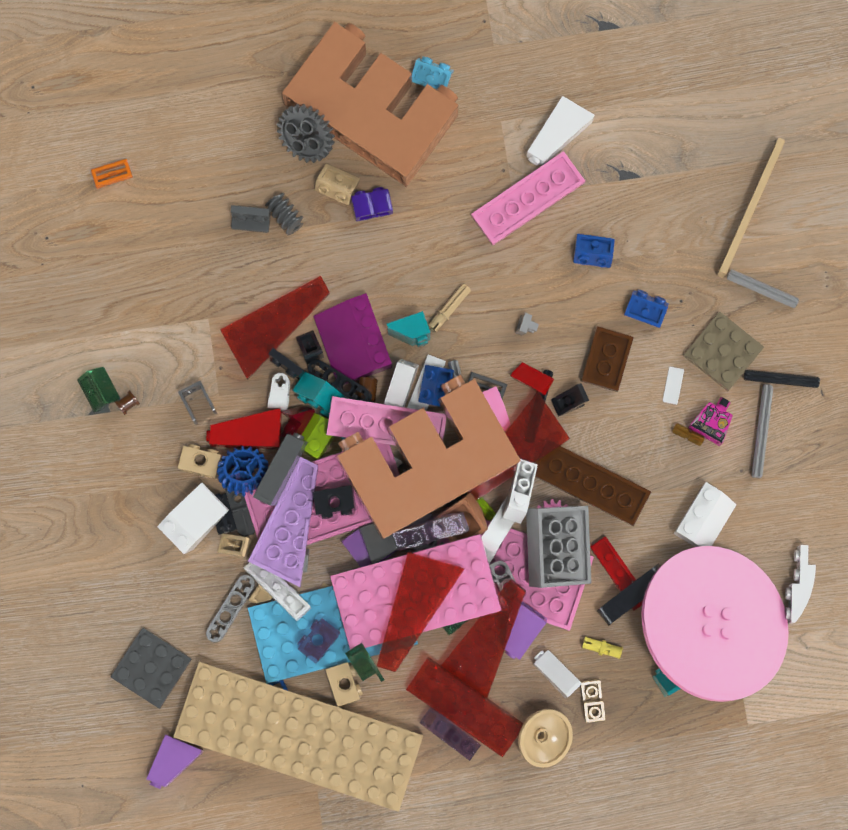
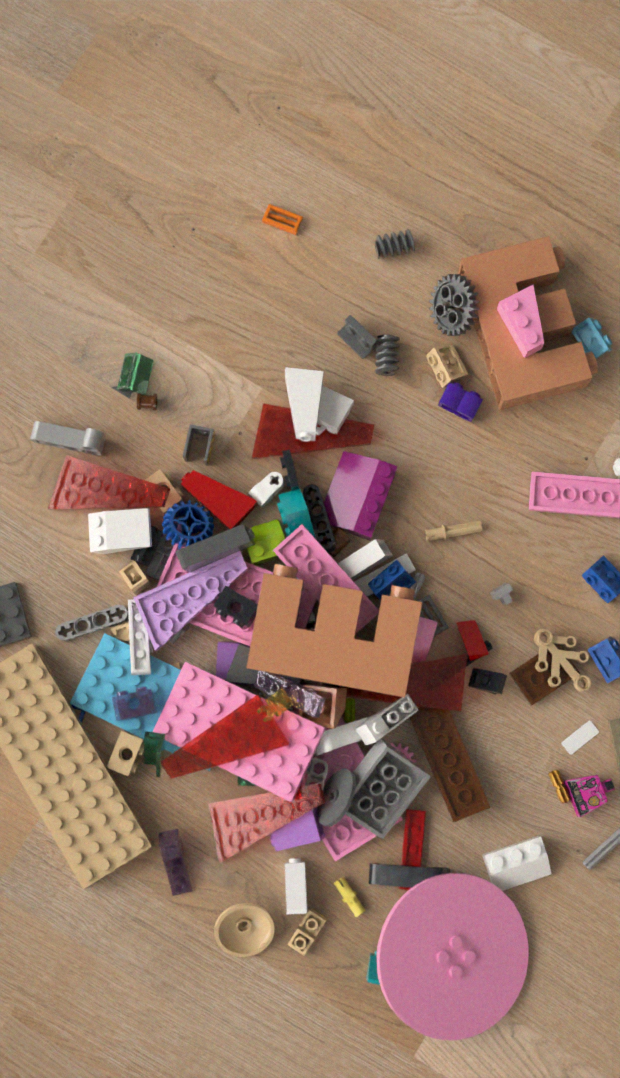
camera: 45 degrees right, 0 degrees up
(89, 481) = (68, 438): none -> light grey beam
(146, 500) = (96, 487): none -> clear red wing
(217, 121) = (394, 243): none -> dark grey piece
(251, 299) = (304, 396): none -> white slope
(271, 295) = (333, 410): none -> white piece
(299, 419) = (264, 521): dark red slope -> none
(310, 346) = (320, 472): black slope -> none
(370, 103) = (523, 320): none -> bright pink wedge
(410, 330) = (408, 523): teal slope -> none
(429, 546) = (277, 704): none -> clear yellow plate
(465, 707) = (203, 851): clear red plate -> none
(533, 577) = (337, 796): none -> dark grey piece
(609, 338) = (560, 657): none -> tan plant
(799, 593) = (544, 989): white slope -> none

